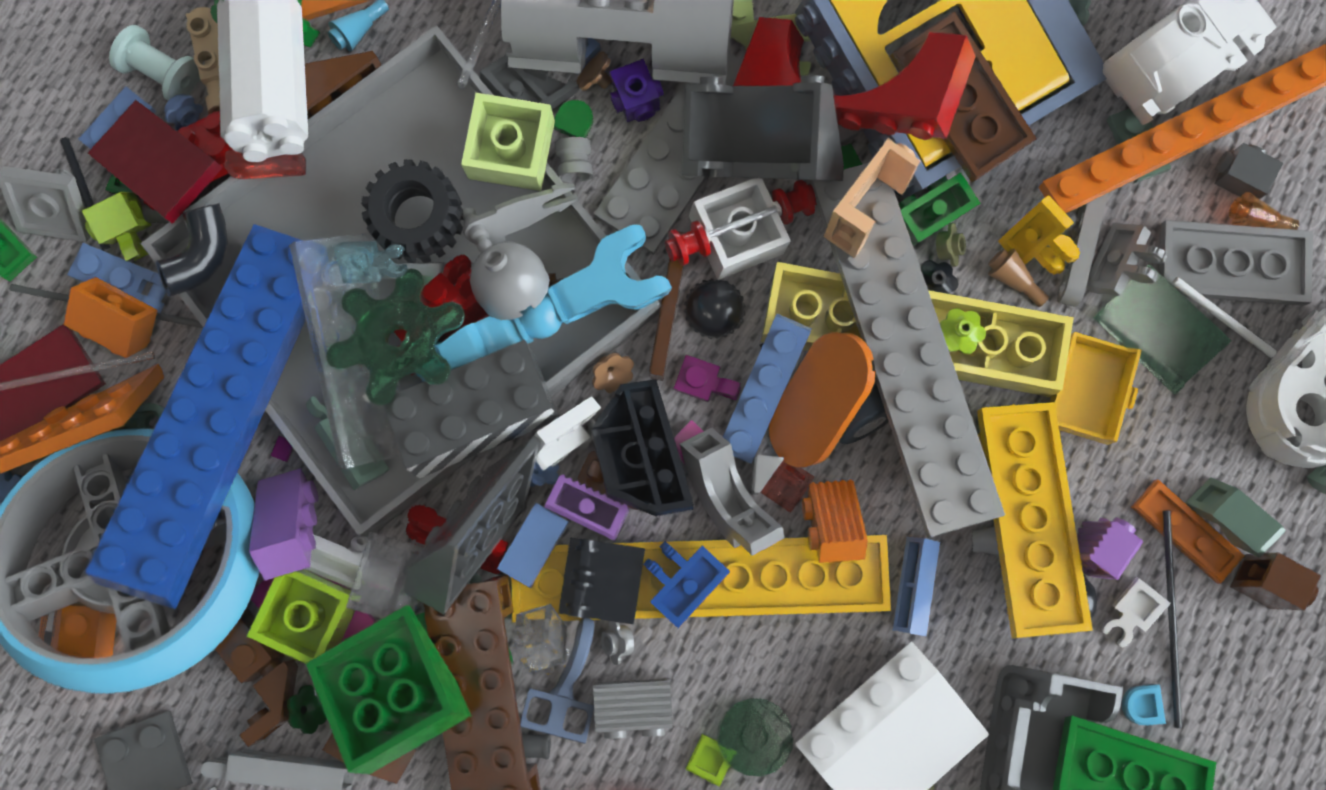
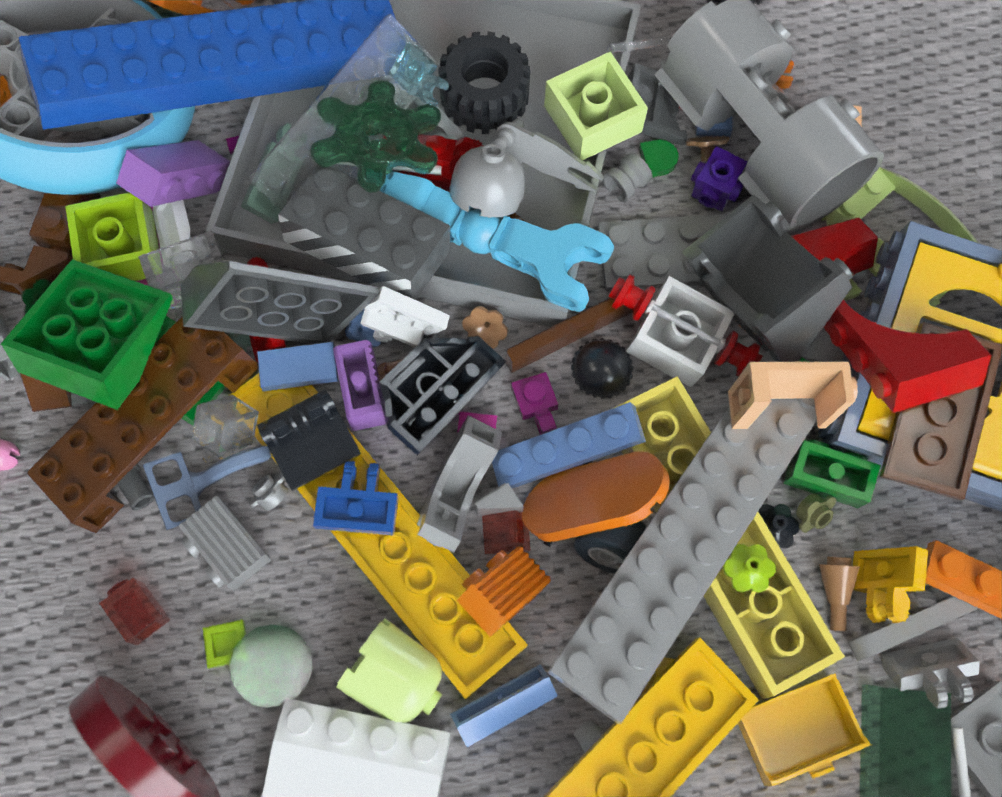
camera: 45 degrees right, 10 degrees down
(836, 651) = (393, 675): none -> yellowish green cylinder

